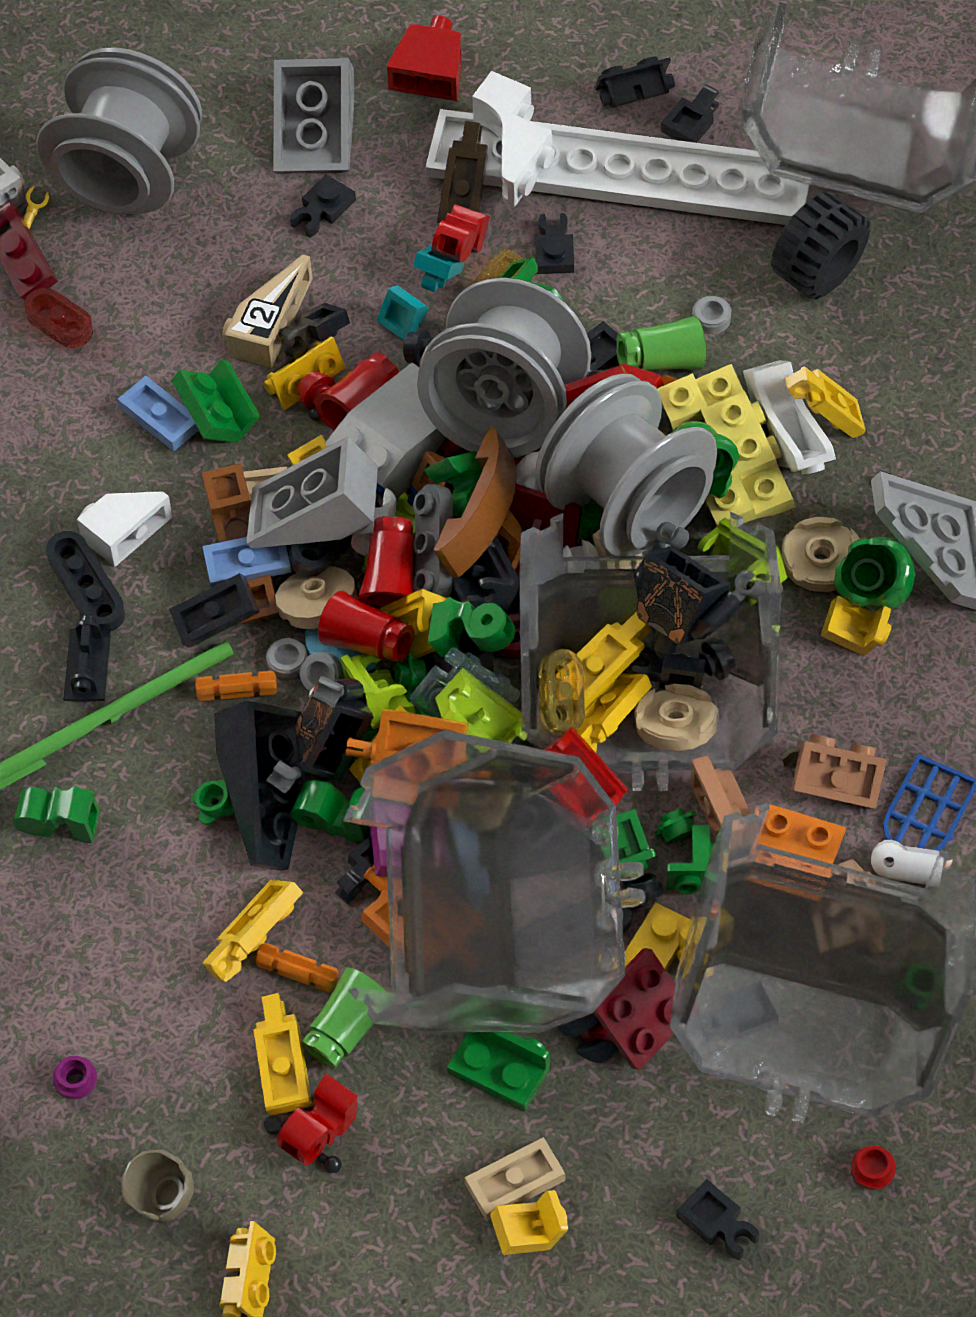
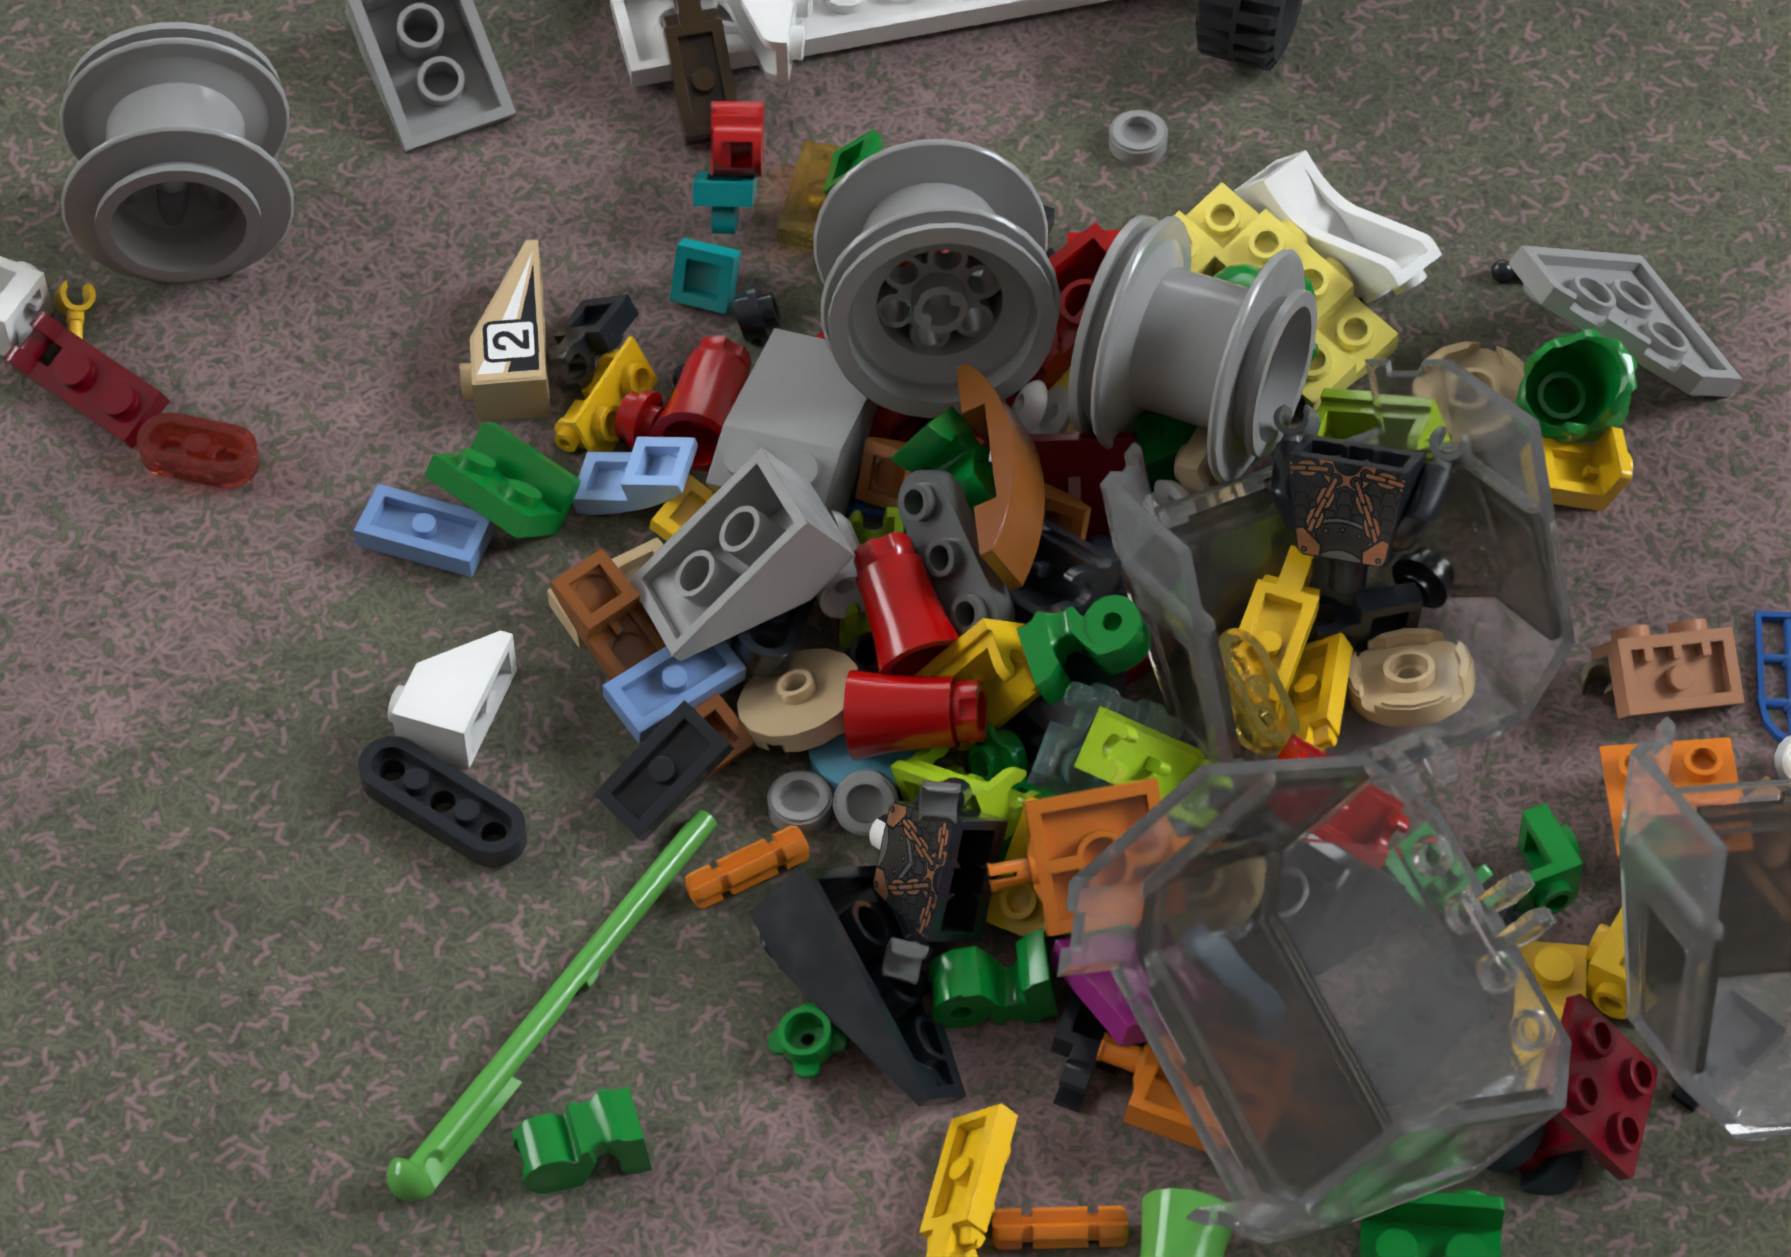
camera: 25 degrees left, 5 degrees down
(87, 661) = (505, 913): black hinge -> none
(292, 424) = (635, 479): none -> light blue slope
(326, 201) = (504, 166): black plate -> none
(553, 248) = (860, 113): black plate -> none
(664, 346) = (1111, 191): bright green plant -> none
(676, 825) = (1490, 824): green plate -> none
(716, 792) = (1535, 773): nougat bracket -> none
(828, 399) = (1377, 187): yellow hinge -> none

